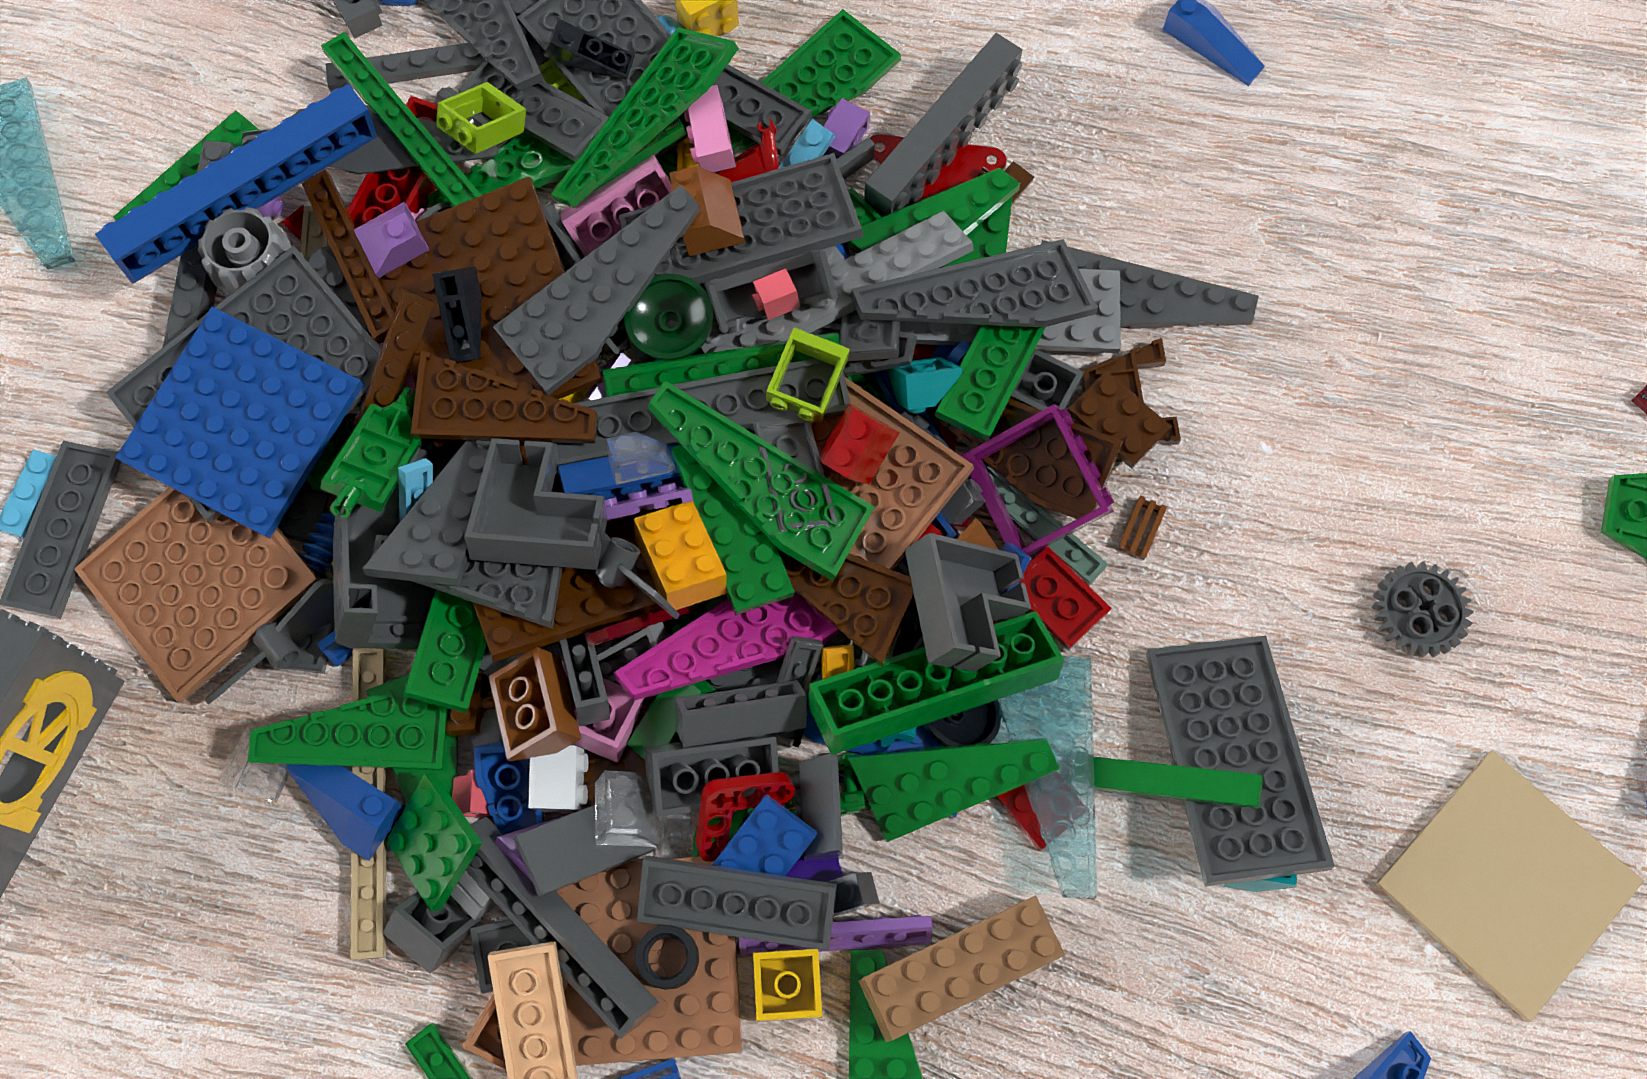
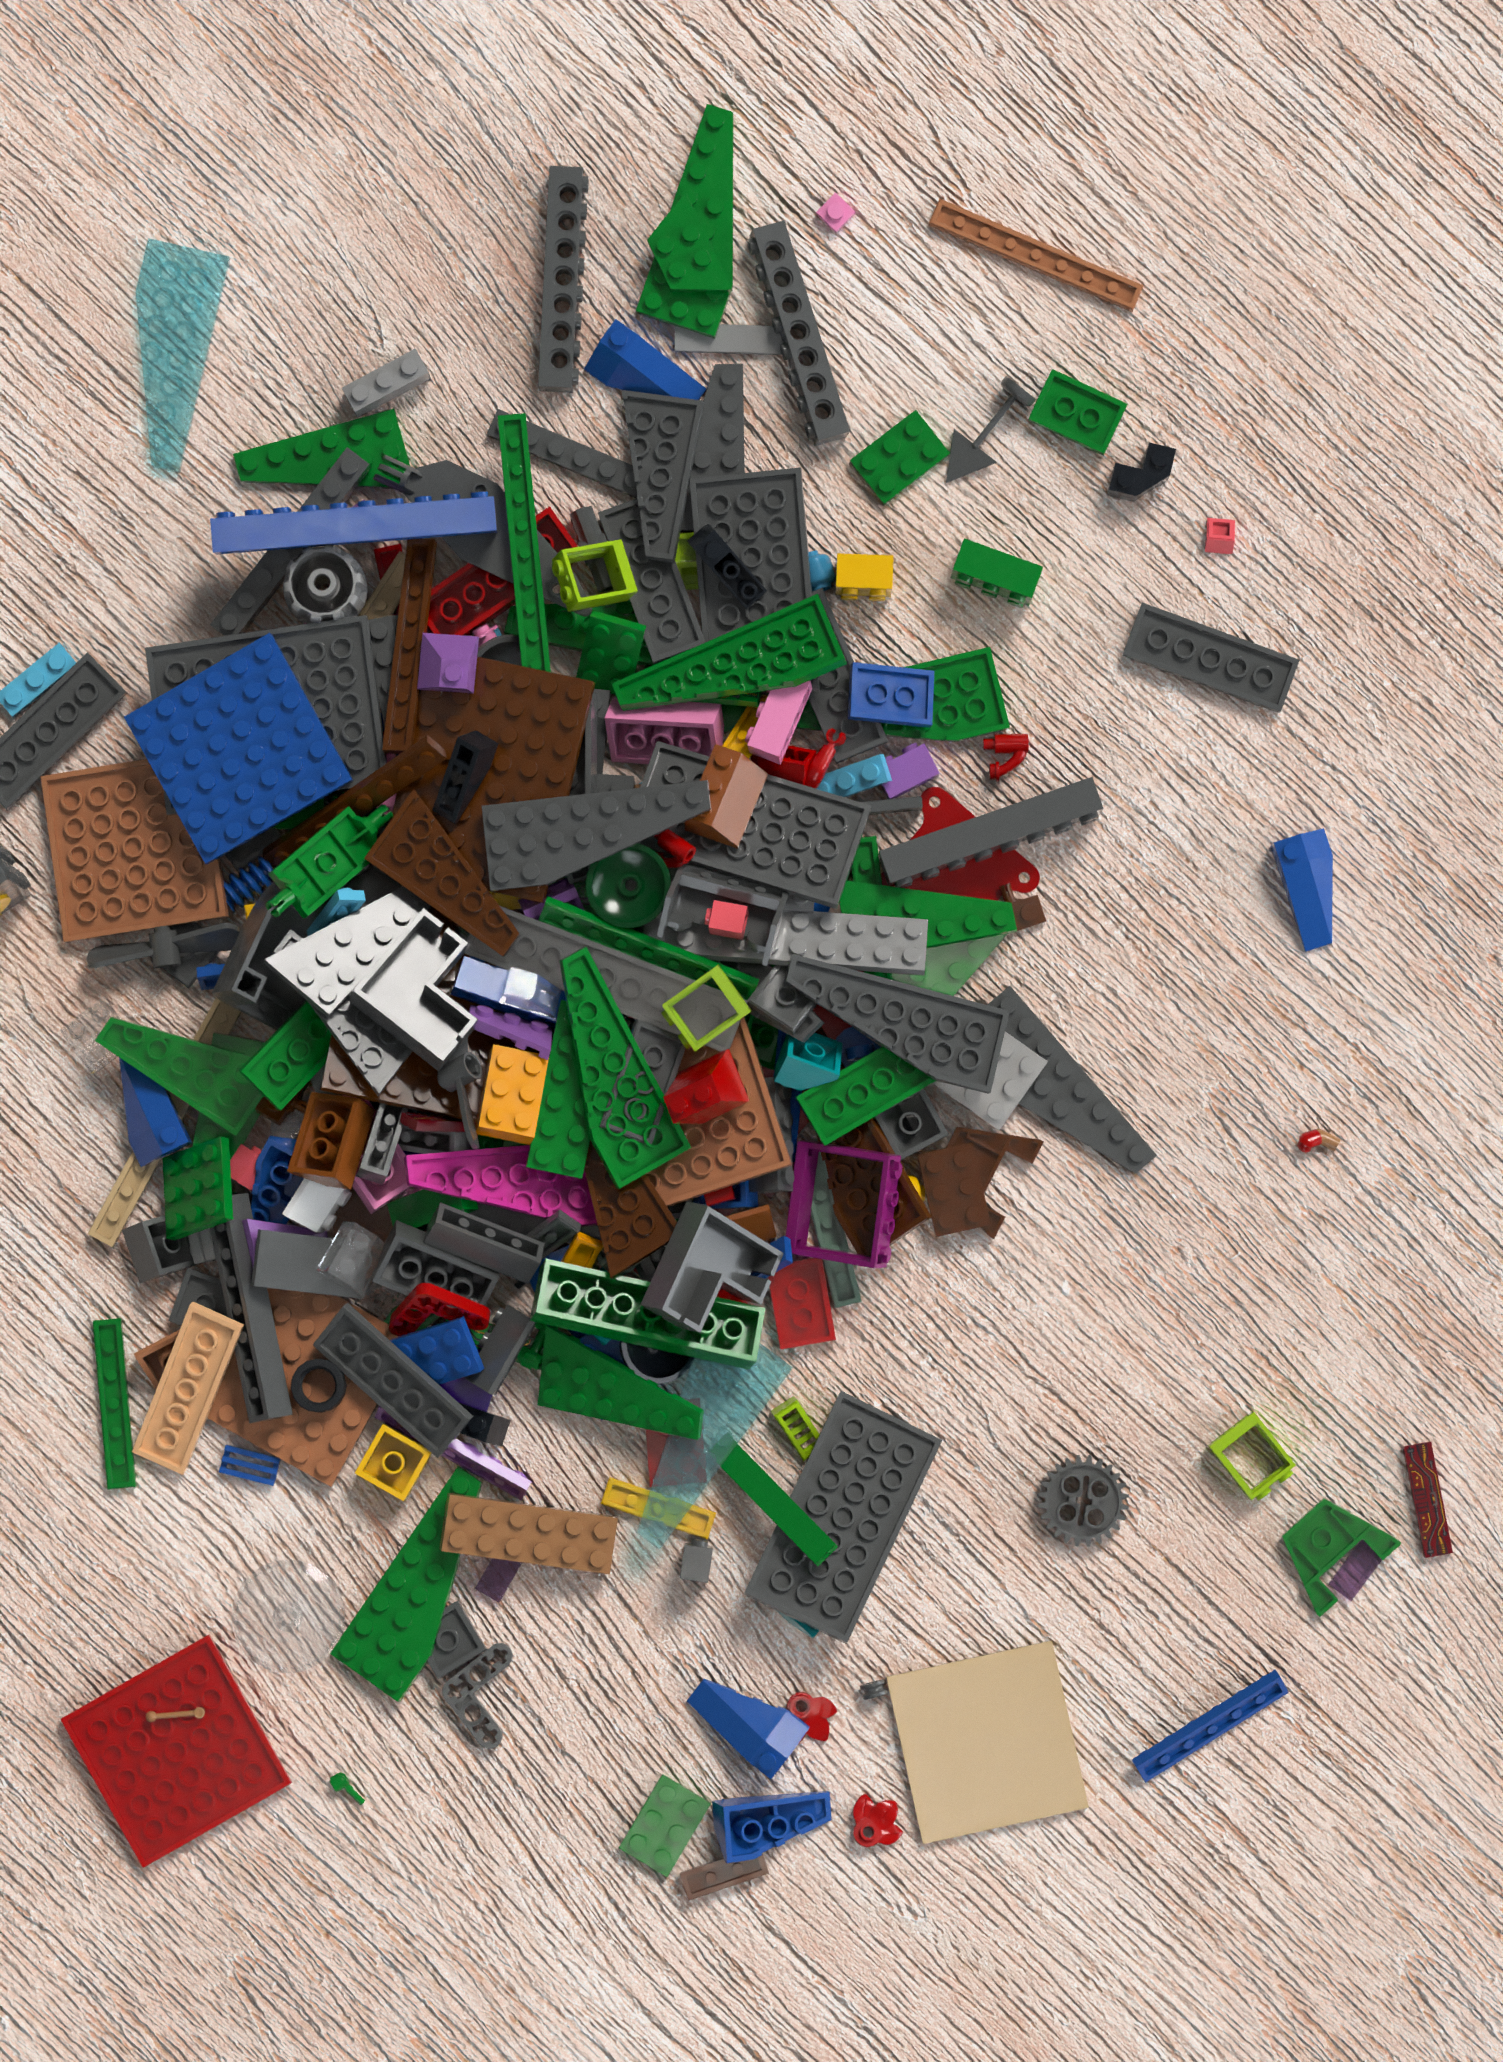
camera: 35 degrees right, 15 degrees up
(216, 92) = (386, 383): none -> light grey brick
(534, 157) = (610, 650): none -> green plate
(689, 265) = (677, 847): none -> red plant
(789, 75) = (891, 694): none -> blue plate
(904, 71) = (1007, 744): none -> red plant
(959, 1034) = (497, 1578): none -> clear purple tile
(1038, 873) = (633, 1498): none -> yellow tile
(1118, 712) = (783, 1409): none -> lime slope
(1135, 887) = (696, 1560): none -> dark grey brick
(1151, 506) = (932, 1276): dark orange tile -> none
(1304, 1015) = (753, 1728): none -> blue wedge
(1341, 971) = (814, 1715): none -> red plate
(1371, 207) = (1317, 1137): none -> arm
(1376, 902) = (873, 1689): none -> dark grey bush
(1475, 1026) = (878, 1819): none -> red plate
(1497, 473) = (1237, 1430): none -> lime window

